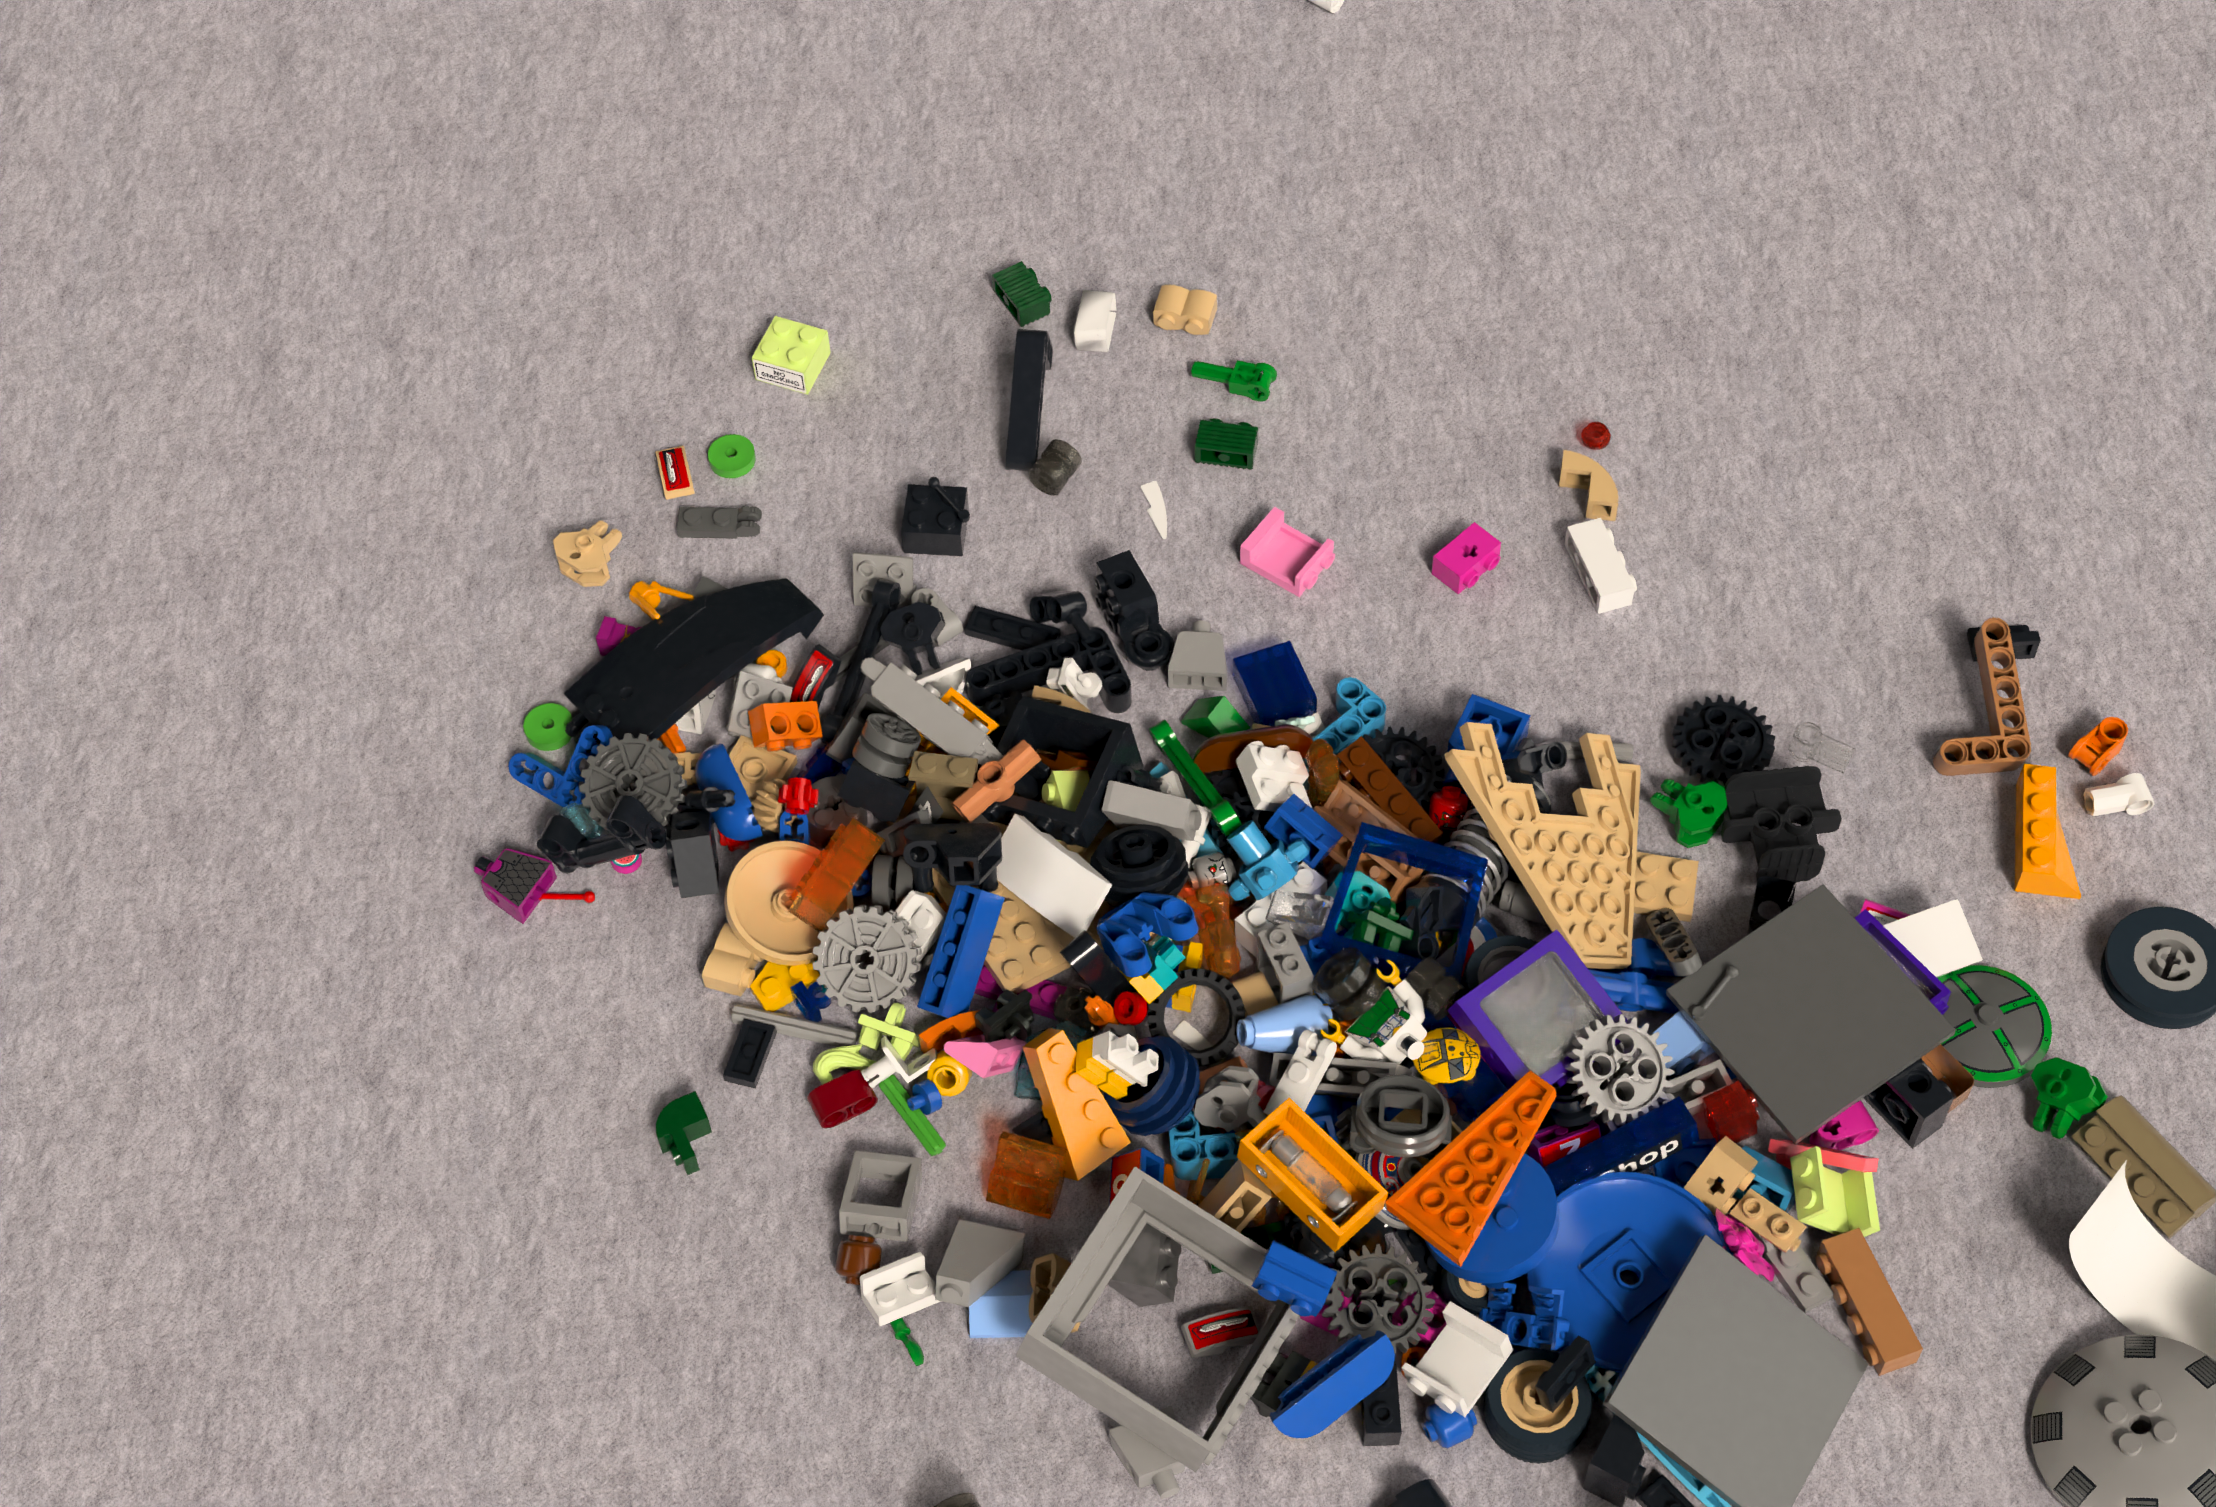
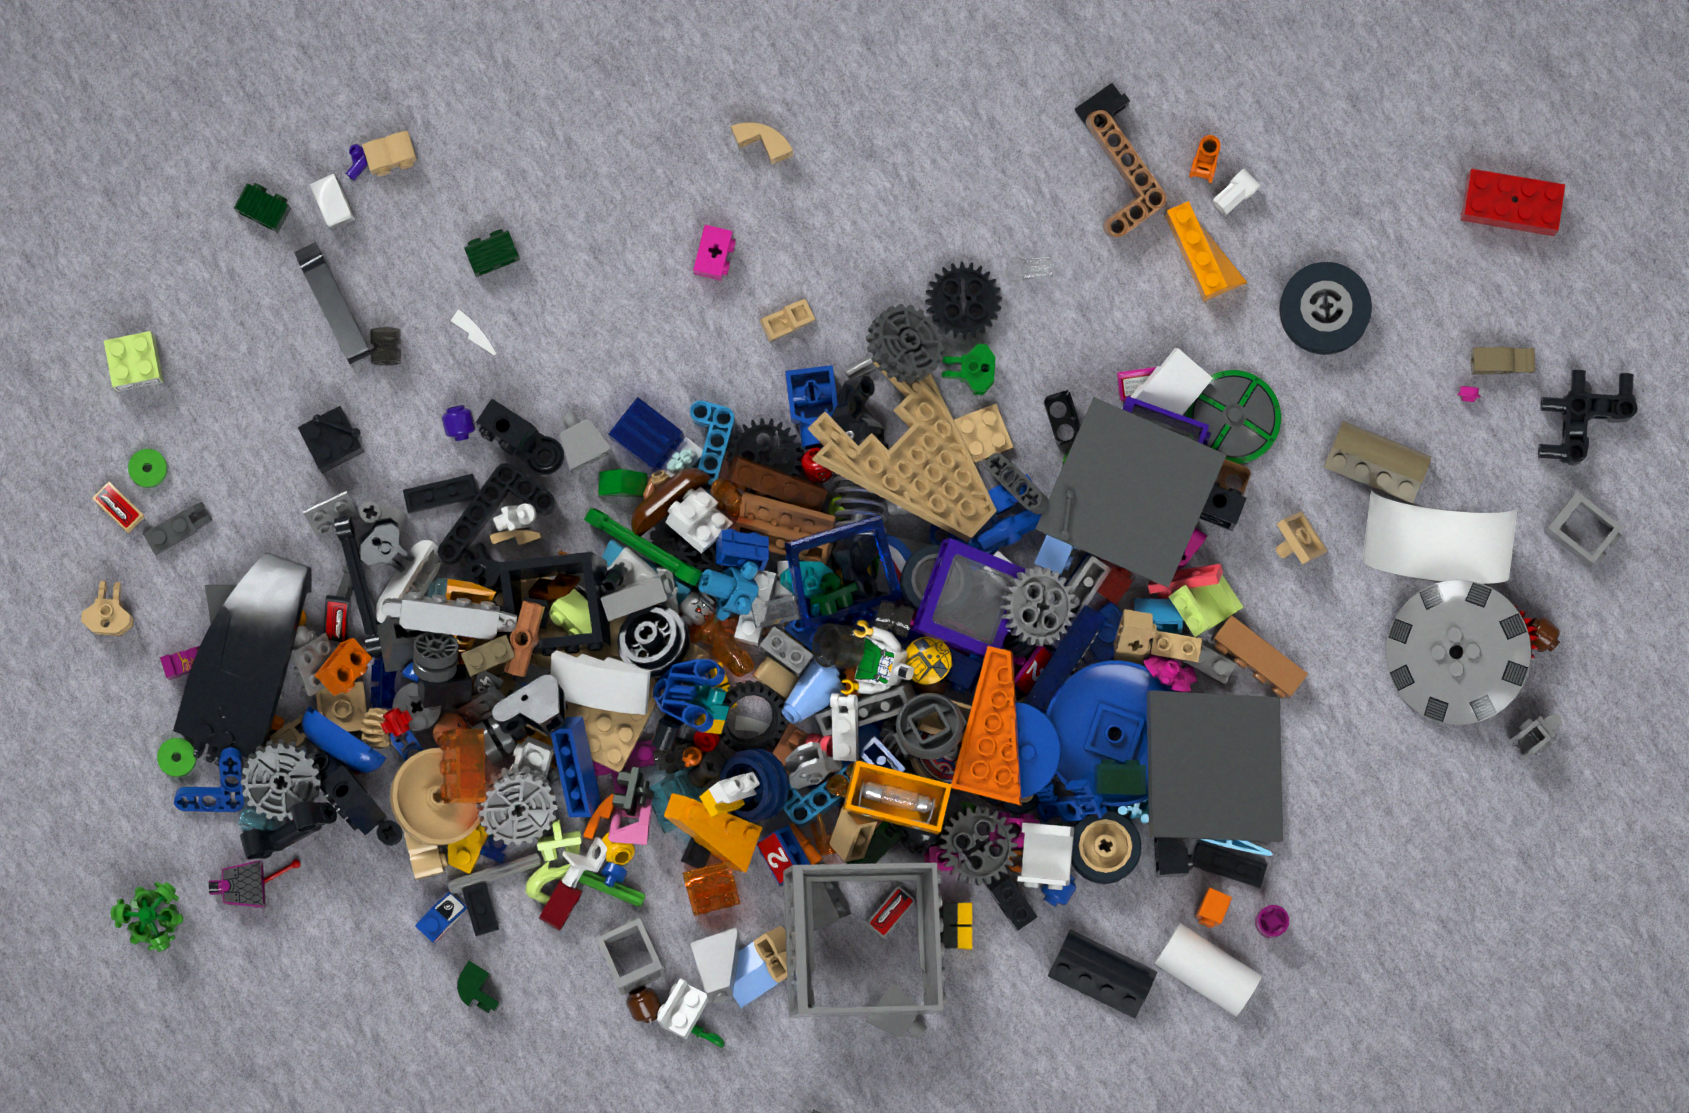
camera: 35 degrees left, 25 degrees up
(393, 842) = (144, 901): none -> bright green plant
(648, 597) = (175, 622): light orange plant -> none
(698, 1035) = (441, 917): none -> blue slope
(707, 927) = (393, 834): none -> black wheel
(710, 799) = (340, 759): black axle -> none
(1062, 607) = (470, 463): black beam -> none
(1078, 572) = (458, 422): none -> dark purple head
(1147, 306) = (359, 161): none -> dark purple arm
(1243, 379) = (468, 188): green connector -> none
(1285, 554) = (589, 321): bright pink panel -> none
(1293, 1280) = (928, 874): blue brick -> none
(1334, 1386) = (983, 917): blue brick -> none
(1513, 665) = (787, 320): none -> tan slope
(1565, 1373) = (1116, 818): black plate -> none
(1597, 430) = (745, 87): clear red plate -> none
(1600, 565) = (806, 204): white brick -> none
(1606, 1319) = (1120, 778): none -> clear green brick
(1628, 739) = (905, 343): none -> dark grey piece
(1776, 801) = (1024, 336): black piece -> none
(1998, 1192) = (1299, 539): none -> tan tile
(2067, 1091) = (1307, 441): green hinge -> none

